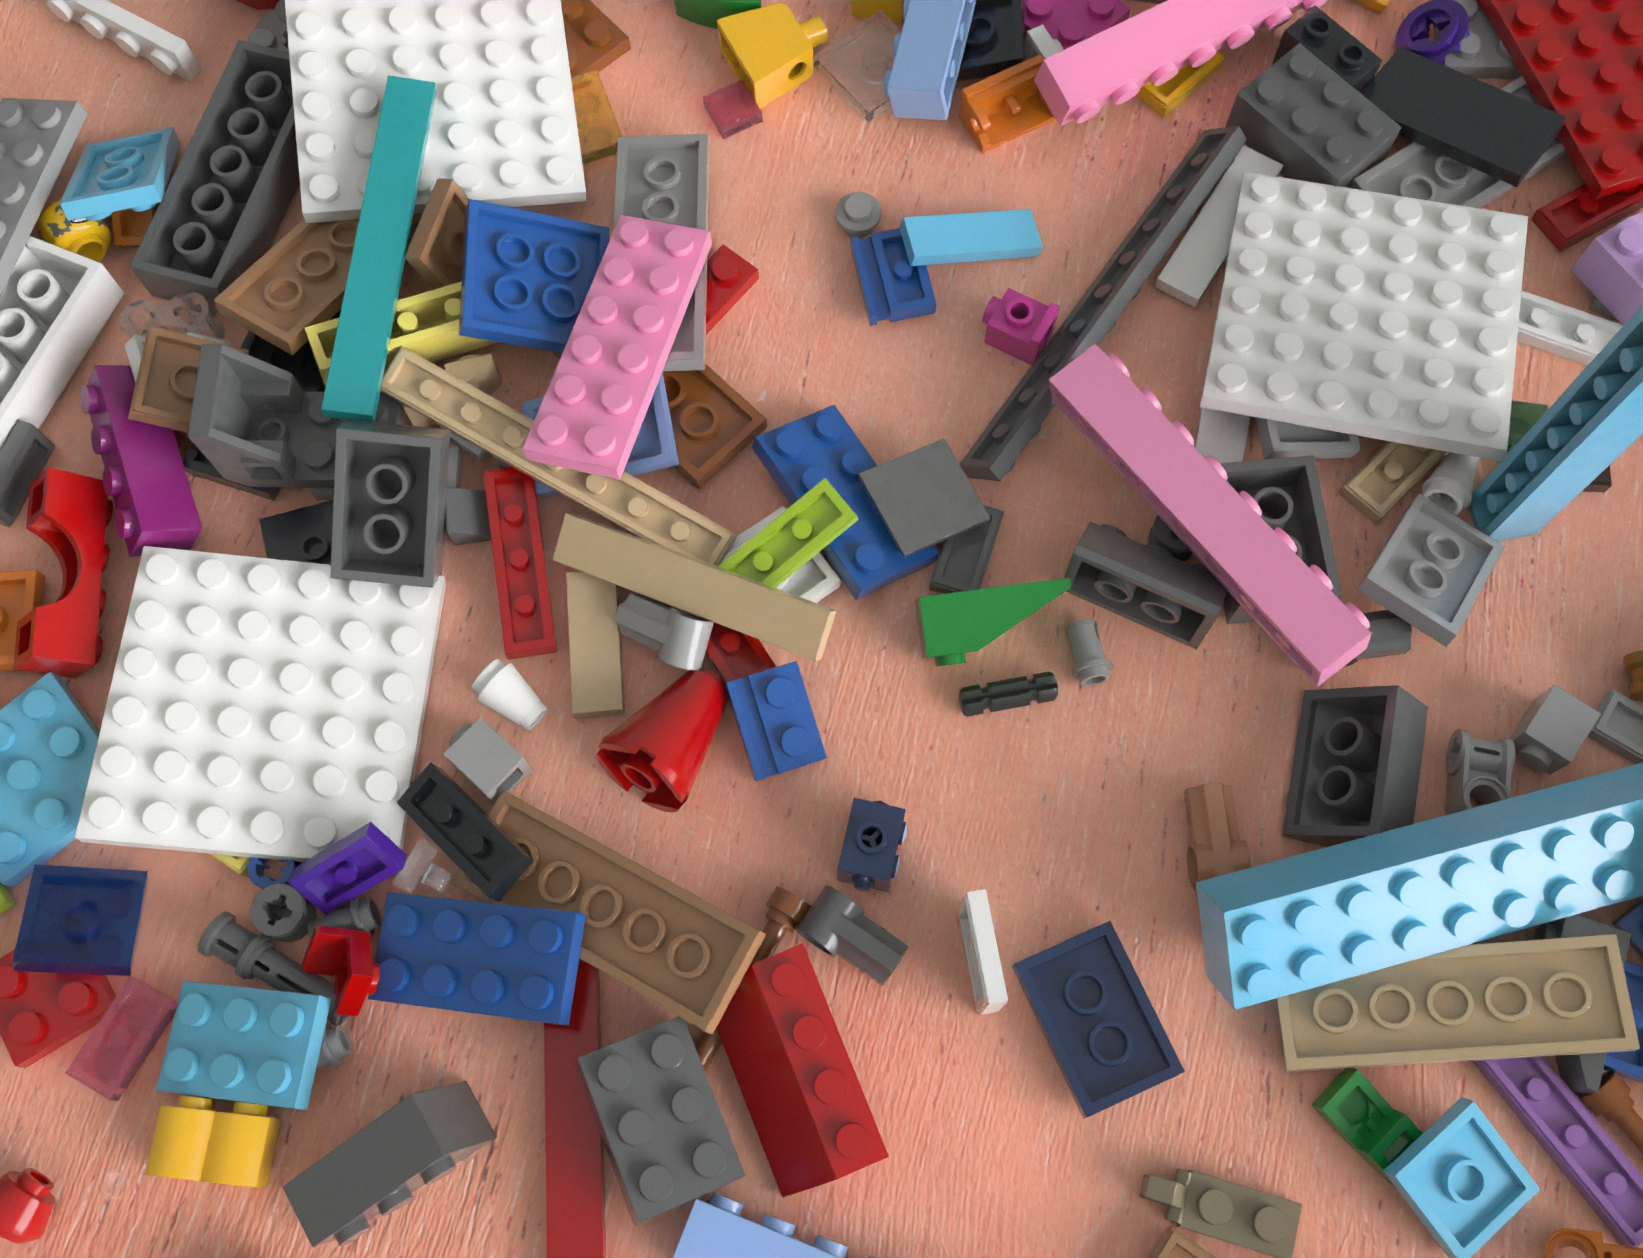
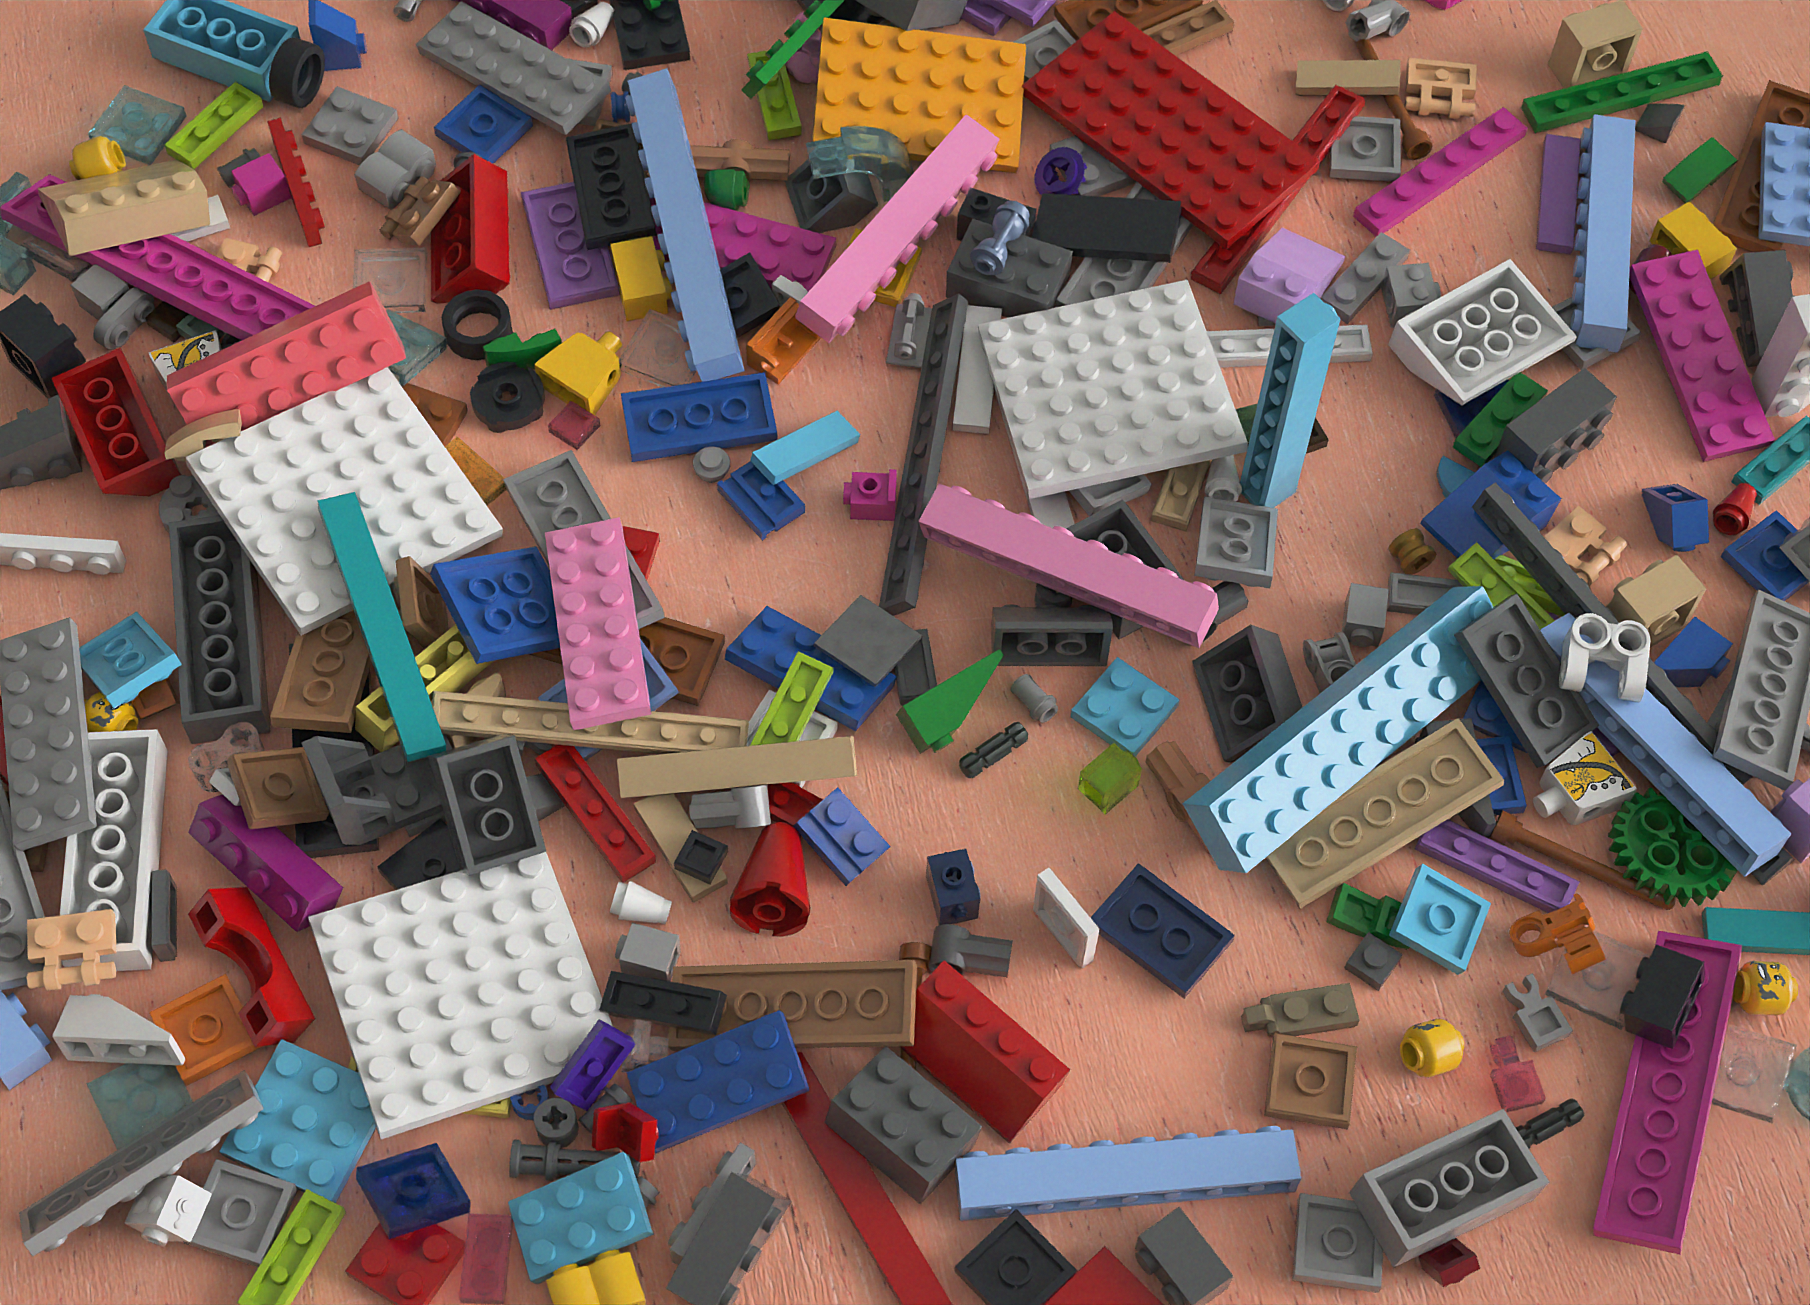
camera: 30 degrees left, 10 degrees down
(440, 1070) = (741, 1162): none -> light grey plate
(603, 671) = (701, 857): none -> black tile
(676, 69) = (511, 414): none -> black plate
(871, 153) = (698, 416): none -> blue plate
(1130, 794) = (1110, 777): none -> clear neon green brick
(1160, 151) = (909, 332): none -> light grey hinge
(1192, 713) = (1124, 707): none -> medium azure plate
(1336, 64) = (1008, 224): none -> sand blue piece
(1347, 1187) = (1373, 961): none -> dark grey plate

